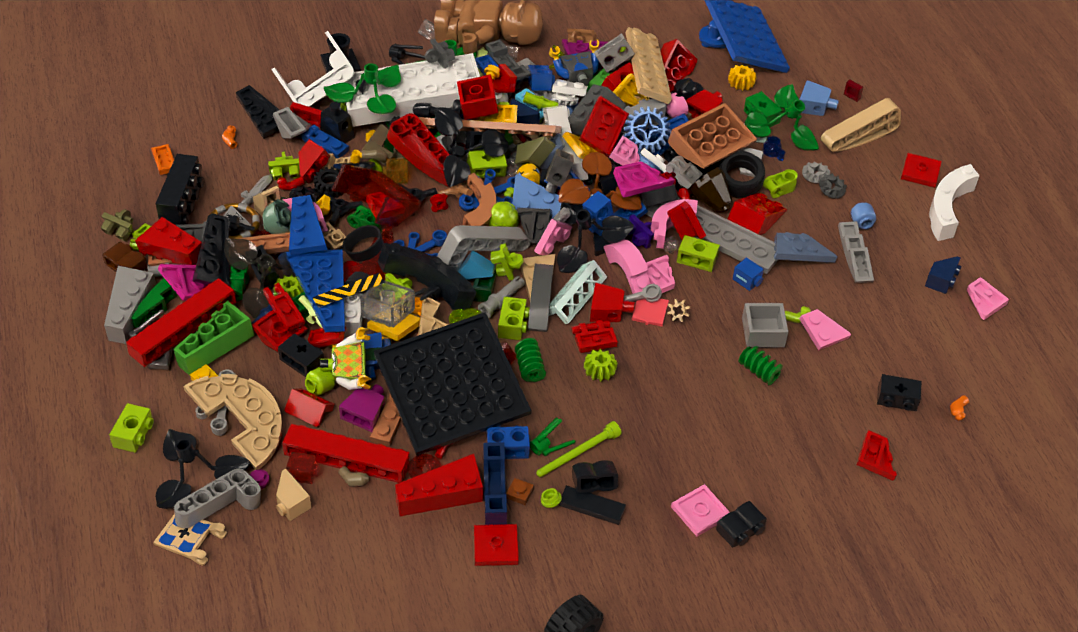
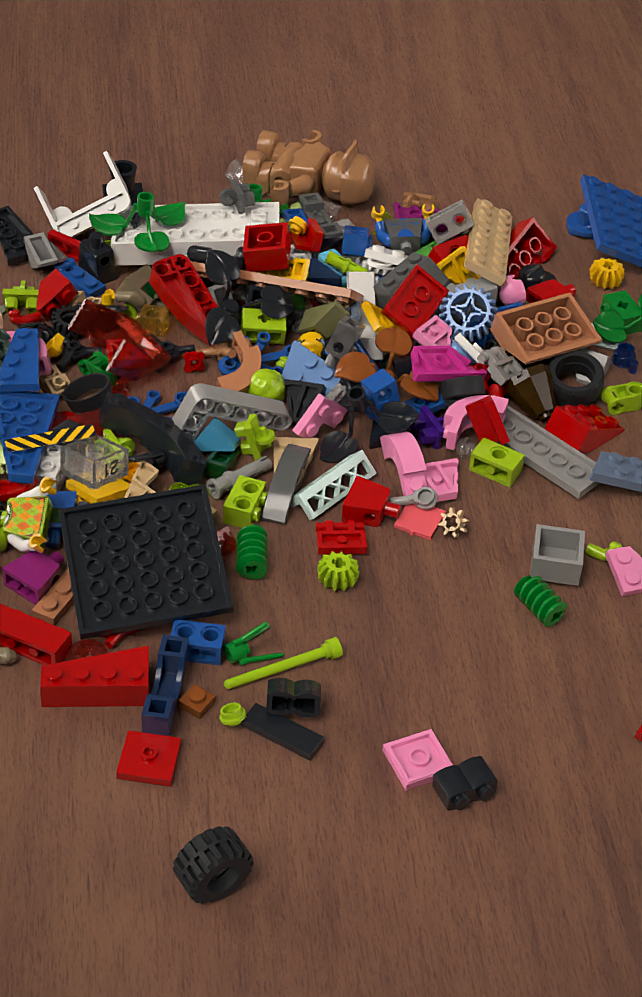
camera: 10 degrees right, 5 degrees down
(398, 52) = (194, 193): black plant -> none
(511, 171) = (292, 334): clear bush -> none
(748, 274) = (553, 494): blue brick -> none

